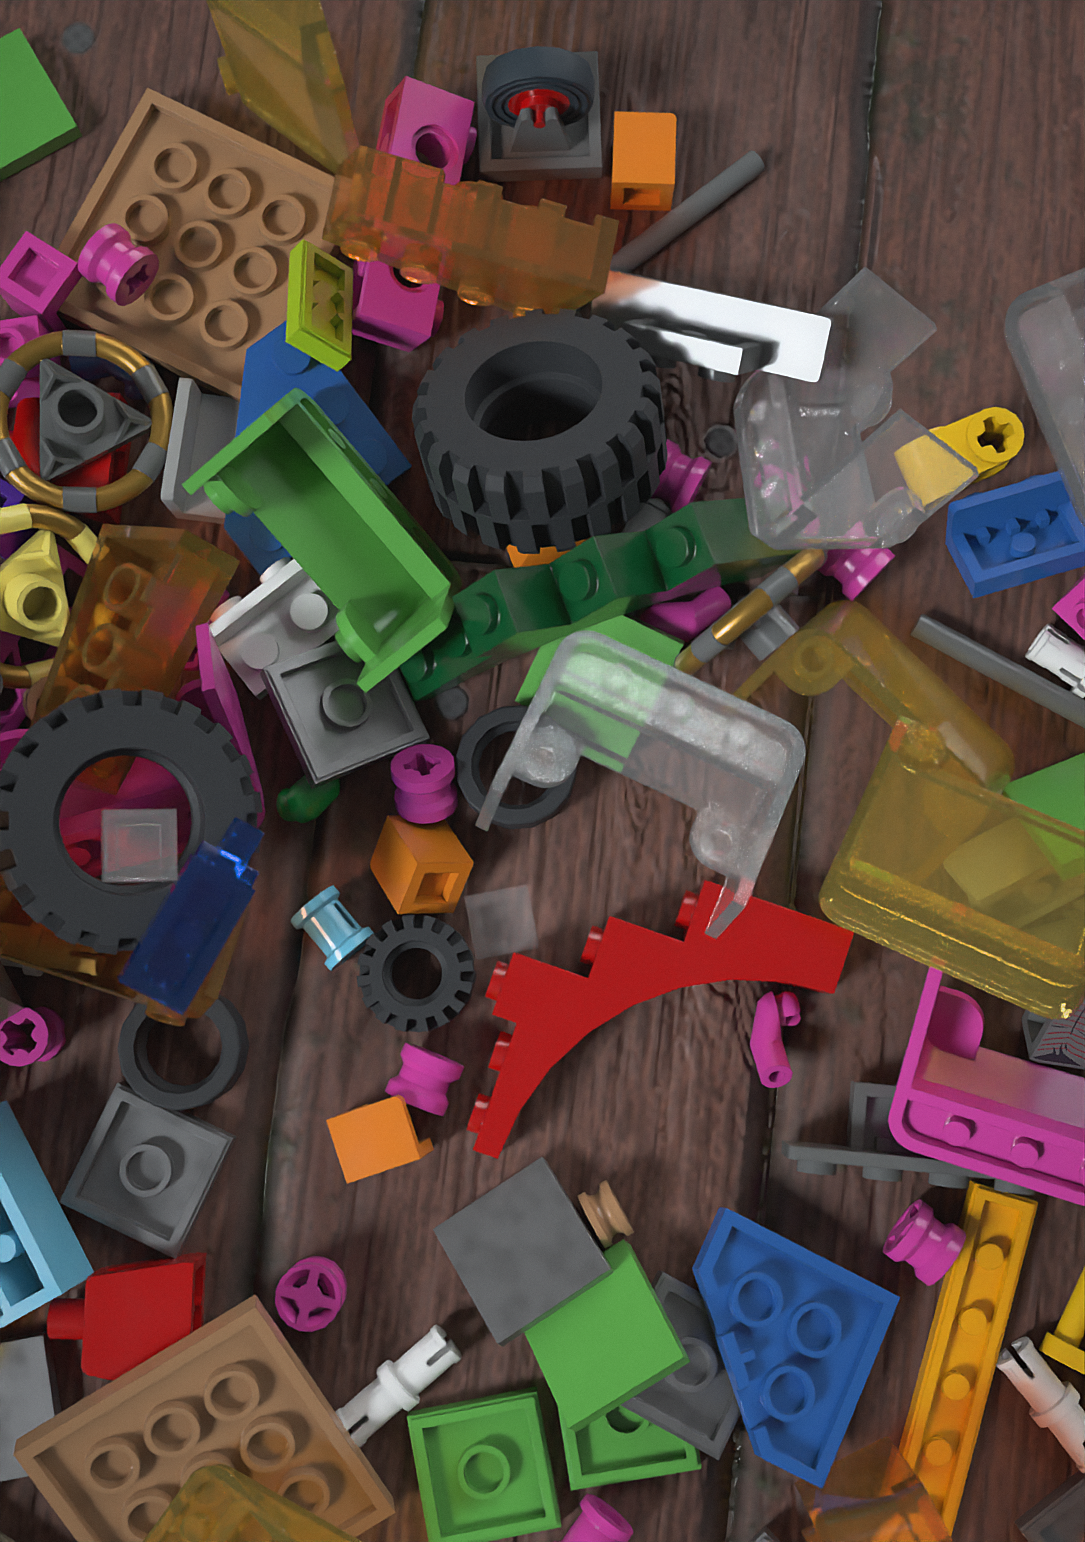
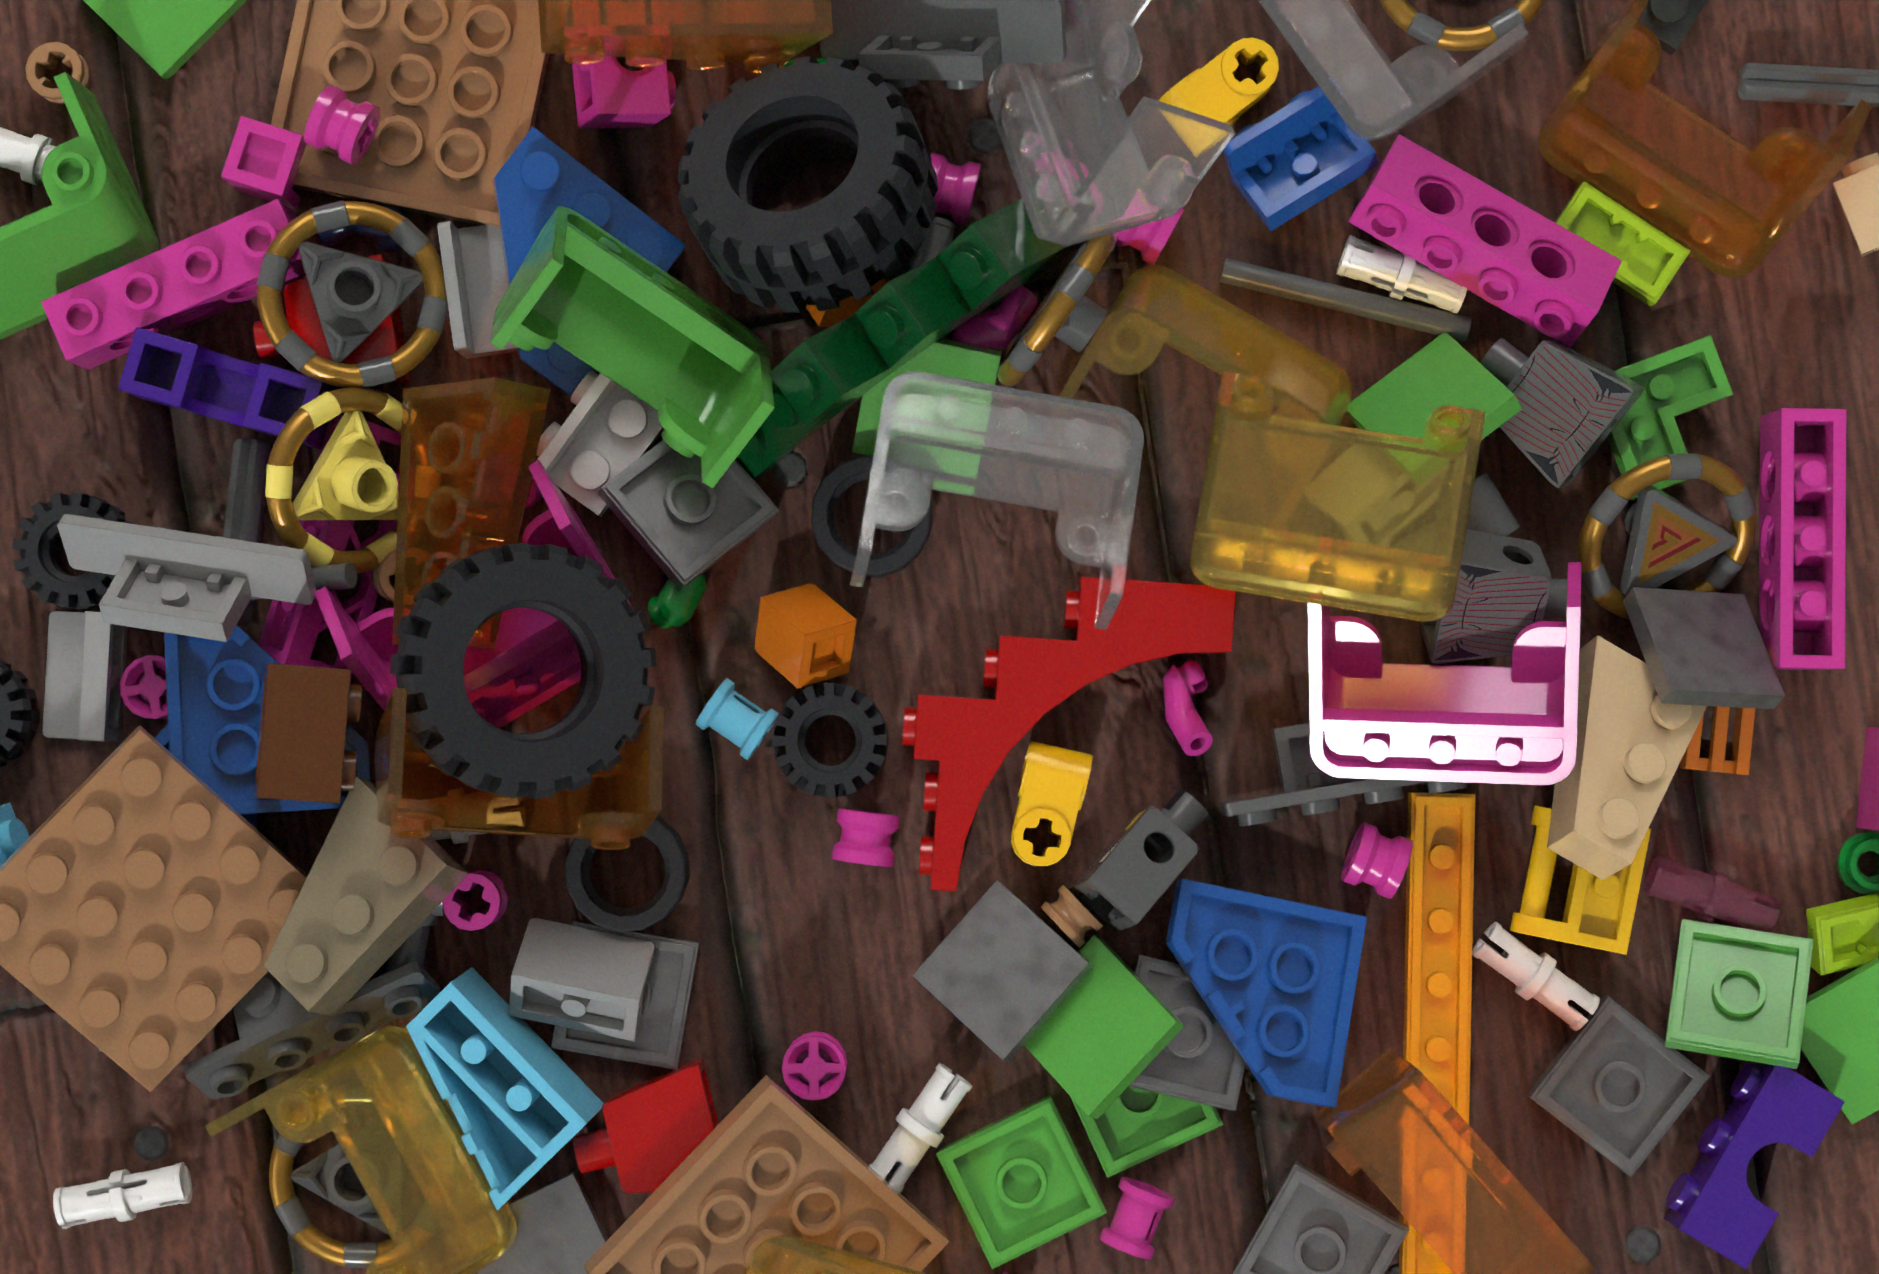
camera: 20 degrees left, 5 degrees up
(104, 1142) = (580, 978): none -> light grey panel
(139, 845) = (550, 690): clear tile -> none
(195, 919) = (620, 742): clear blue hinge -> none
(319, 305) = (554, 114): lime plate -> none
(376, 1138) = (836, 904): orange panel -> none
(424, 783) = (787, 556): dark pink wheel -> none
(501, 922) = (897, 669): clear tile -> none
(619, 1082) = (1052, 791): none -> yellow piece
(665, 1191) = (1123, 880): none -> dark grey torso

